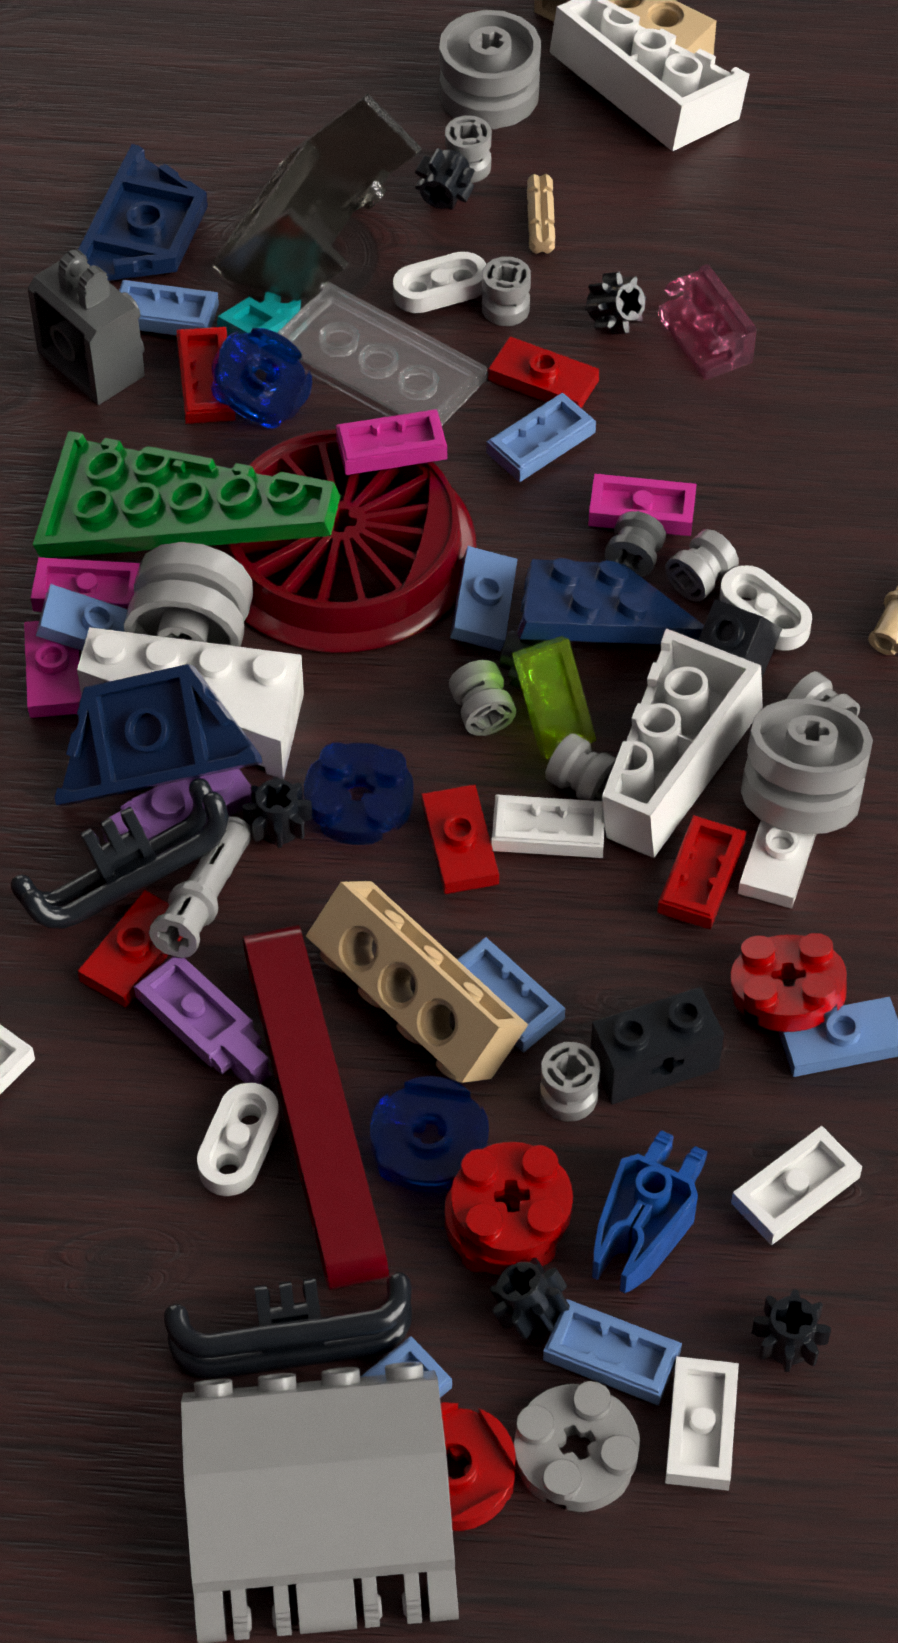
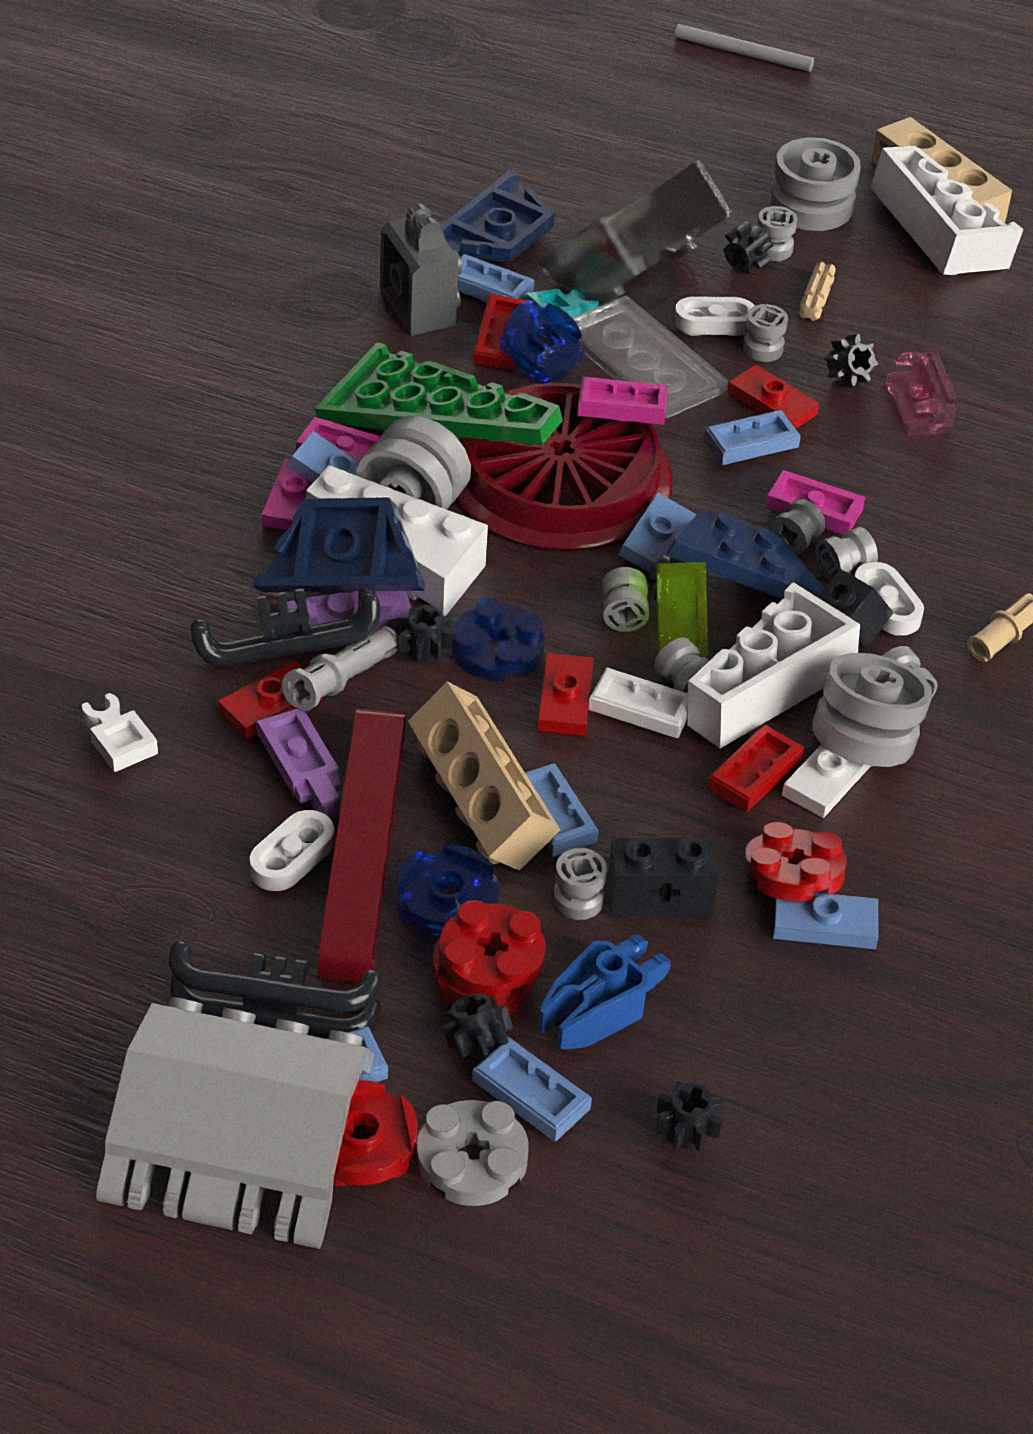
camera: 15 degrees right, 10 degrees down
(702, 1423) = (584, 1163): white plate -> none
(796, 1185) = (740, 1012): white plate -> none

